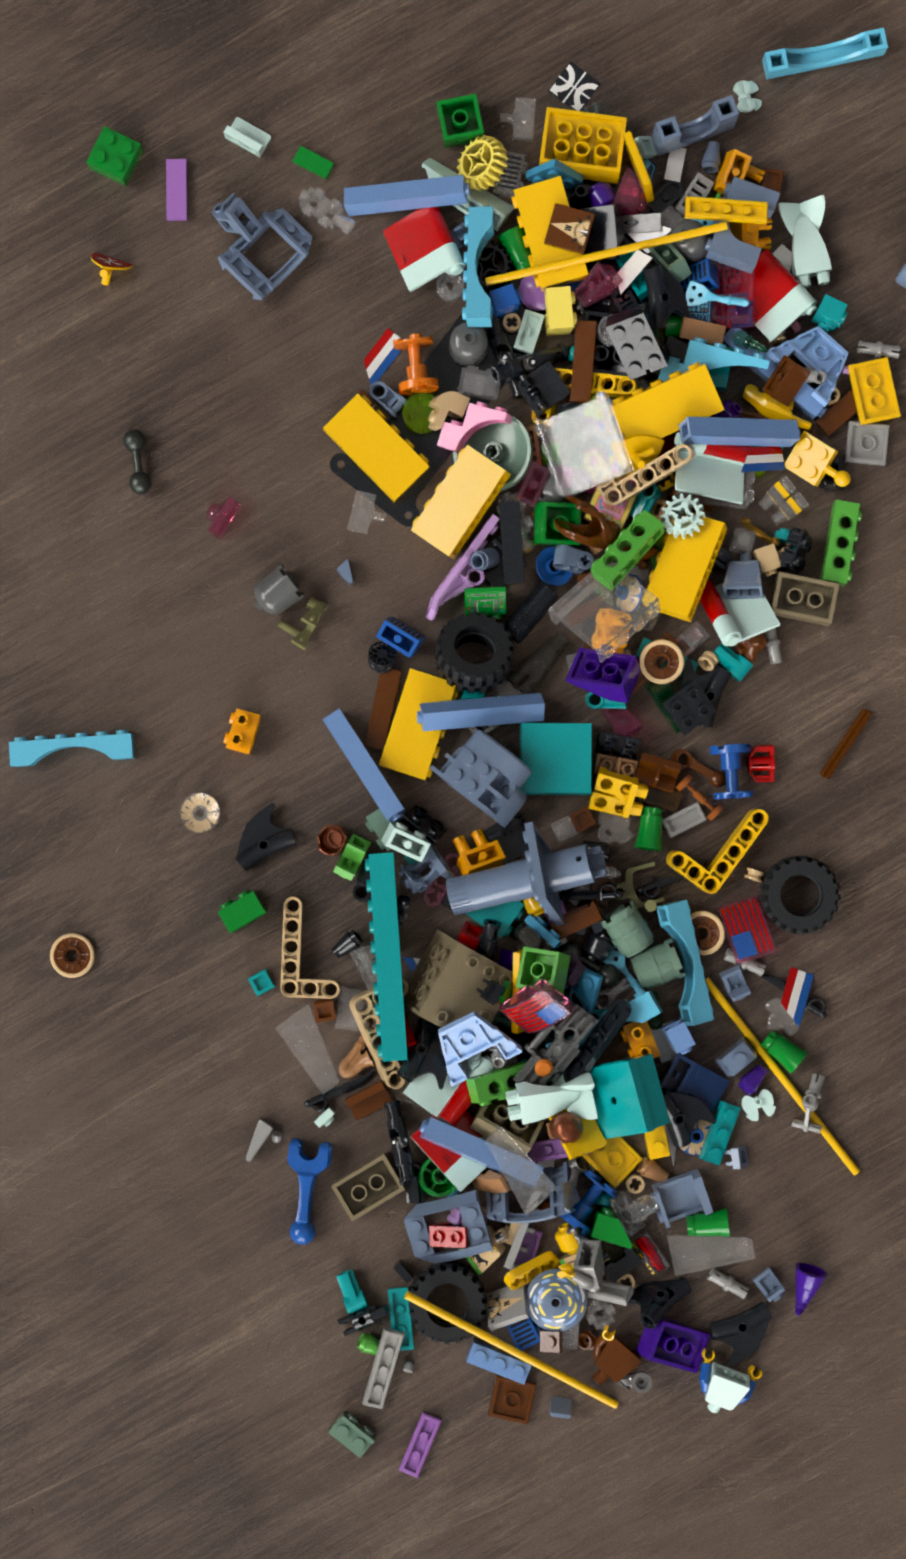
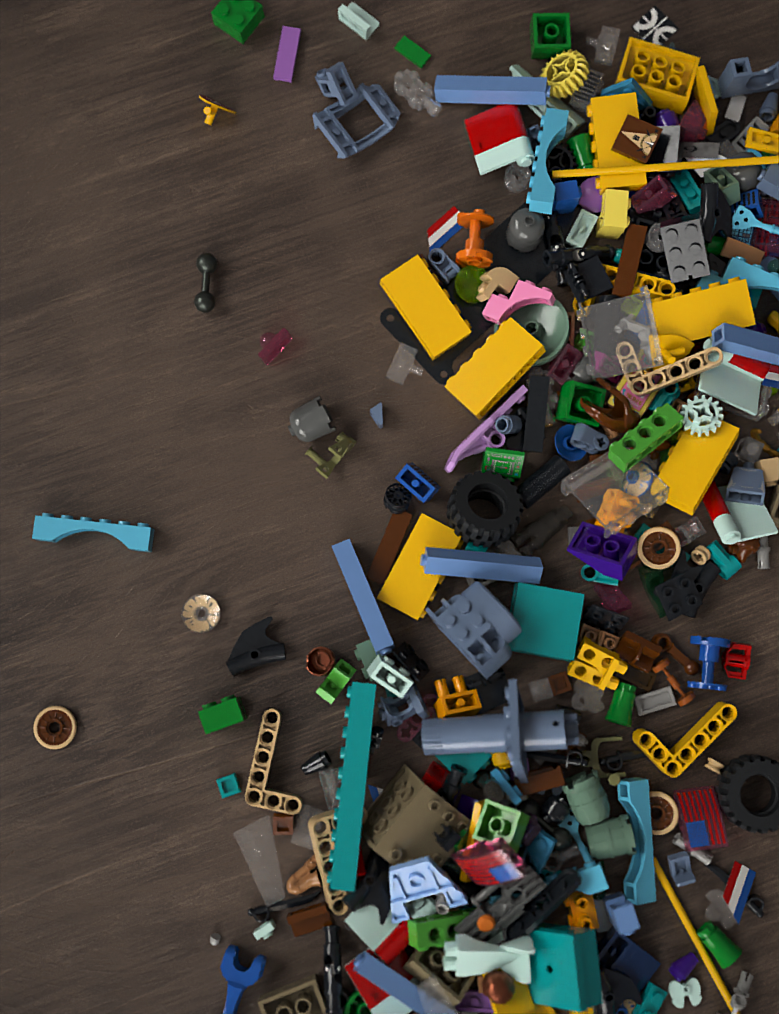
camera: 10 degrees right, 5 degrees down
(243, 731) = (255, 544): light orange brick -> none
(261, 1133) = (201, 933): light grey slope -> none
(361, 882) = (340, 706): black piece -> none
(478, 384) = (529, 267): clear brick -> none
(511, 316) = (567, 213): tan bush -> none
(632, 269) = (689, 183): white sticker -> none
(736, 1057) = (672, 941): sand blue torso -> none

